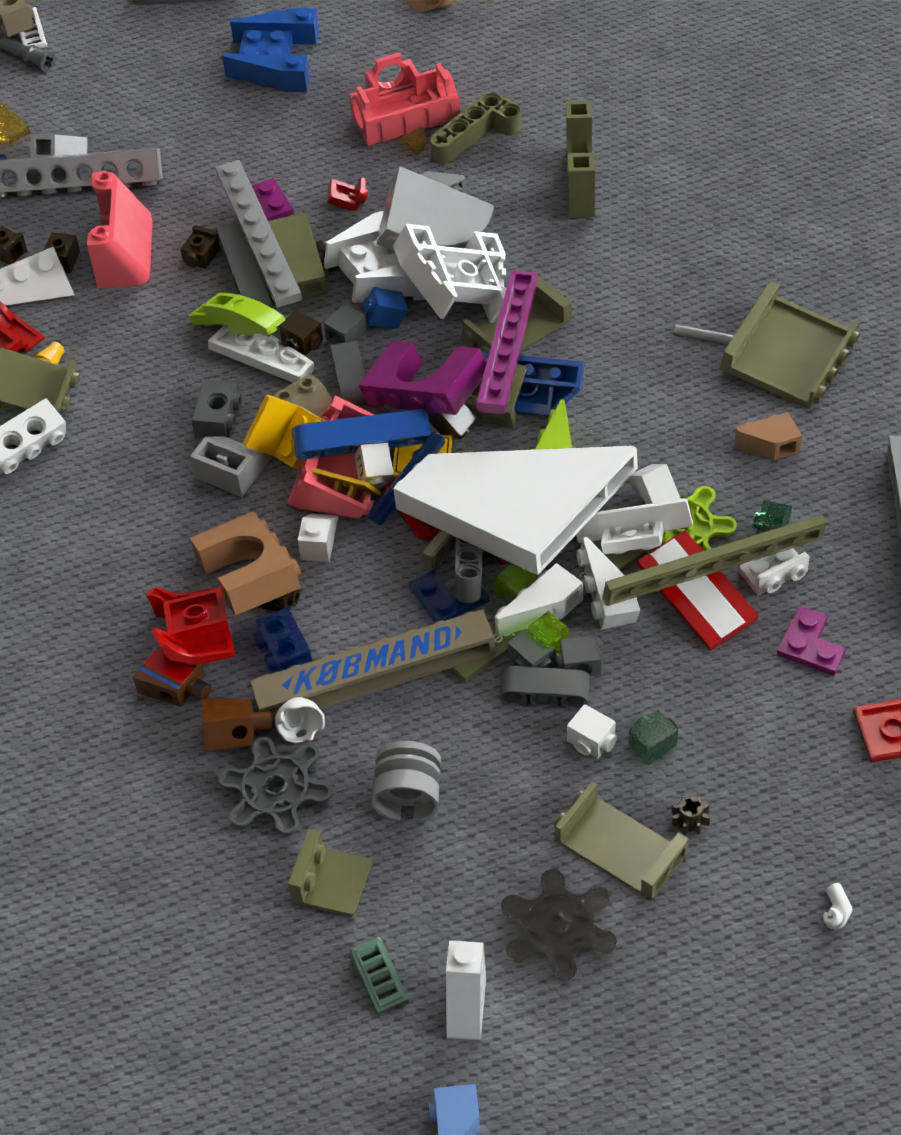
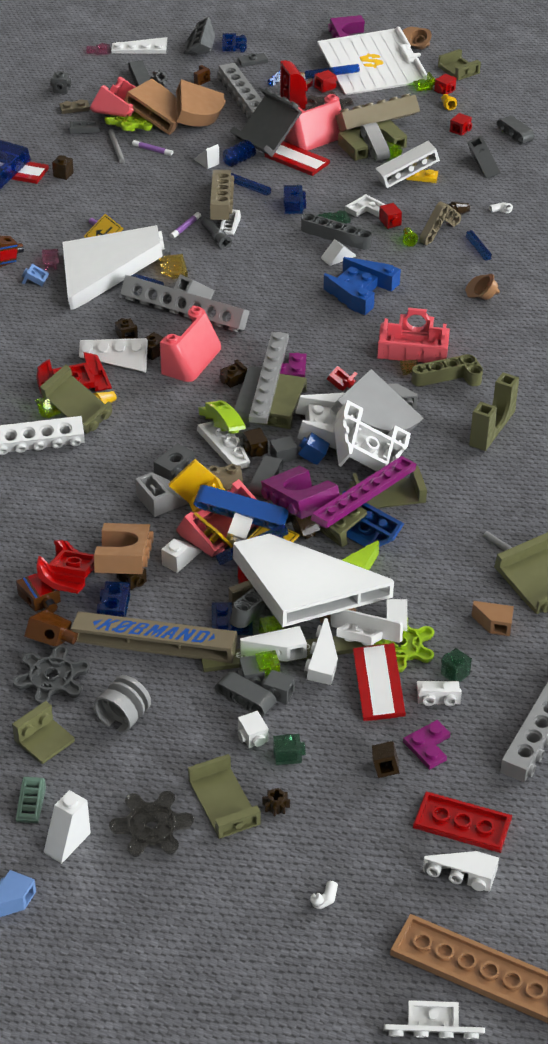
camera: 25 degrees right, 10 degrees down
(209, 19) = (336, 253): none -> white slope
(299, 715) = (90, 643): white hair -> none
(713, 560) = (397, 666): olive tile -> none
(783, 690) = (385, 759): none -> dark brown brick

